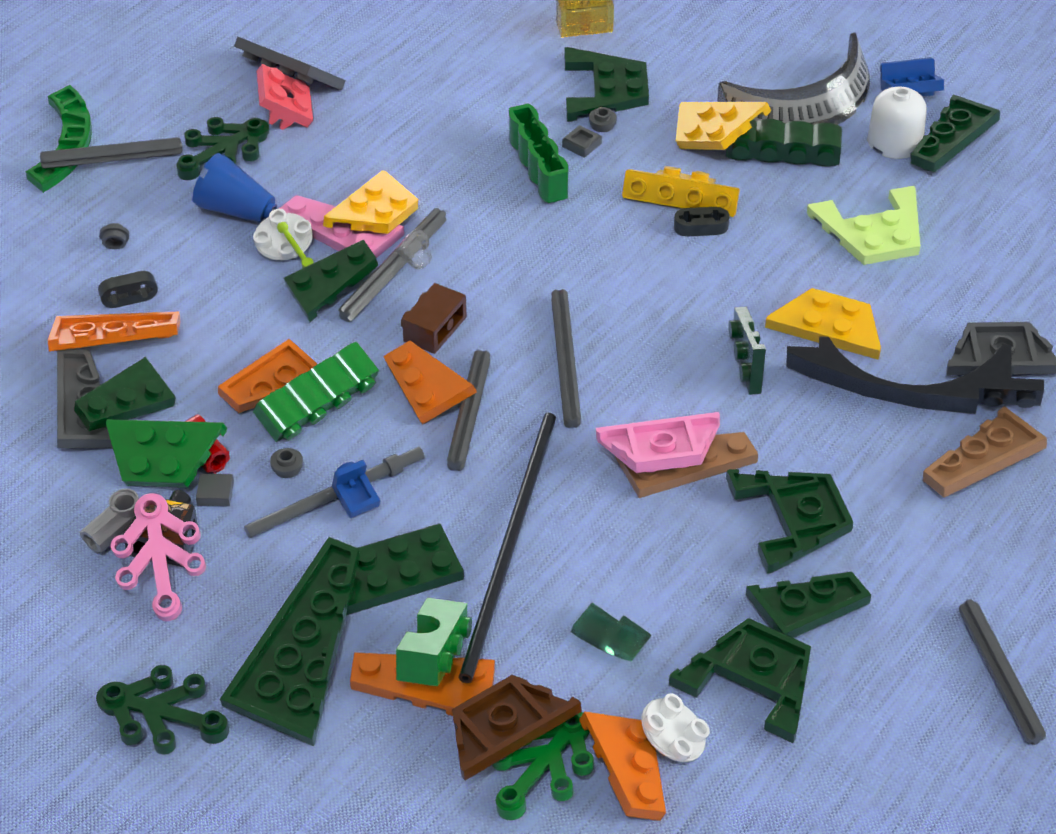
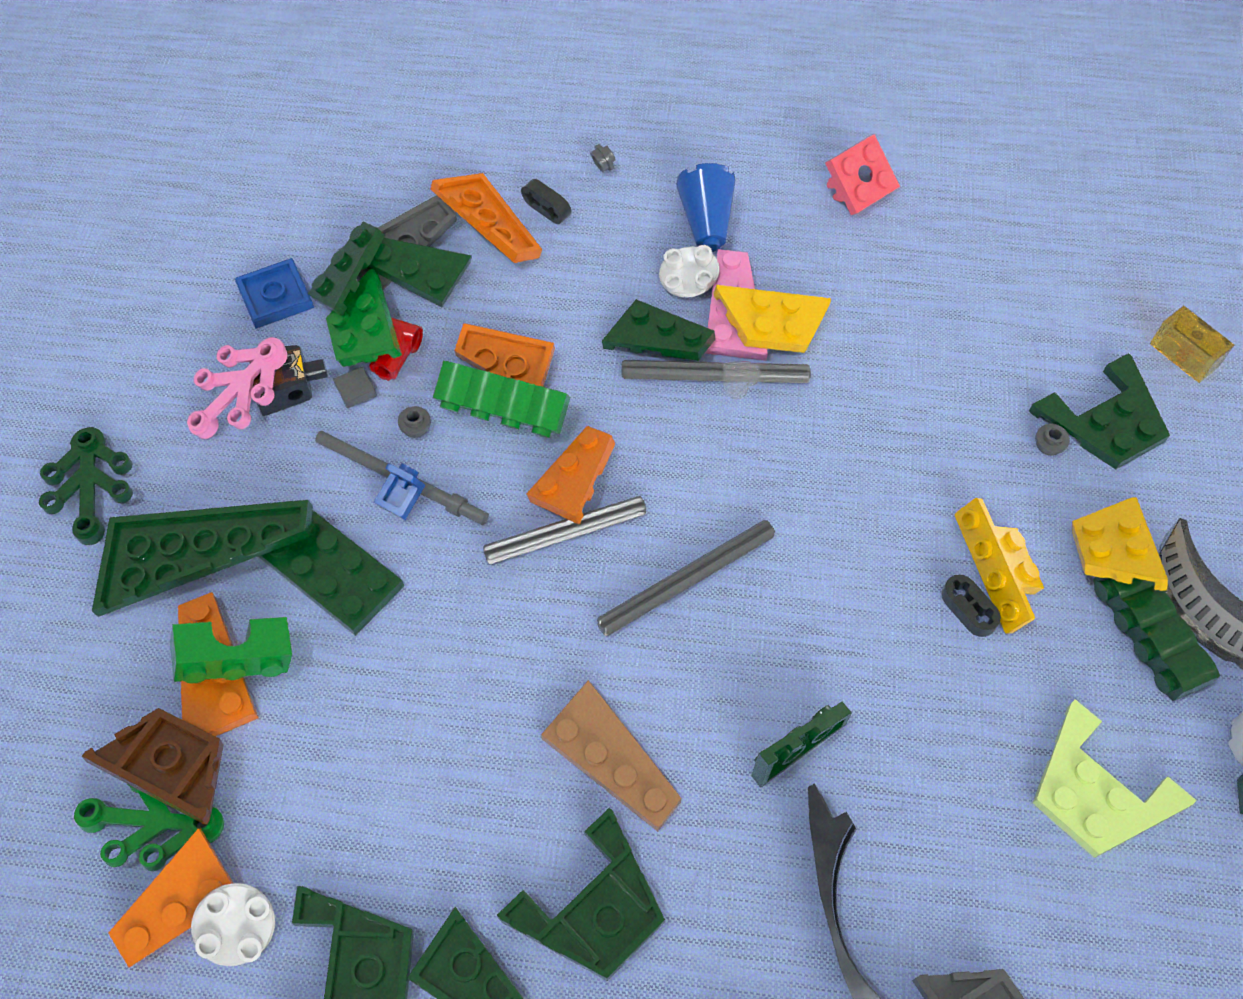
camera: 60 degrees right, 15 degrees up
(54, 511) = (274, 293): none -> blue tile
(75, 134) = (704, 71): green tile -> none
(94, 436) = (341, 275): none -> dark green wing
(110, 152) = (701, 102): dark grey axle -> none
(111, 521) = (286, 330): light grey piece -> none
(253, 130) = (804, 178): dark green plant -> none
(282, 227) = (687, 264): lime hinge -> none
(287, 64) = (908, 158): dark grey wing -> none
(434, 317) = (660, 439): reddish brown brick -> none
(506, 551) = (399, 652): black piece -> none
(538, 153) = (943, 408): green brick -> none
(582, 141) = (1006, 438): dark grey tile -> none
(608, 634) = (341, 802): clear green slope -> none
(661, 442) = (602, 727): bright pink wing -> none
(825, 314) = (912, 809): yellow wing -> none

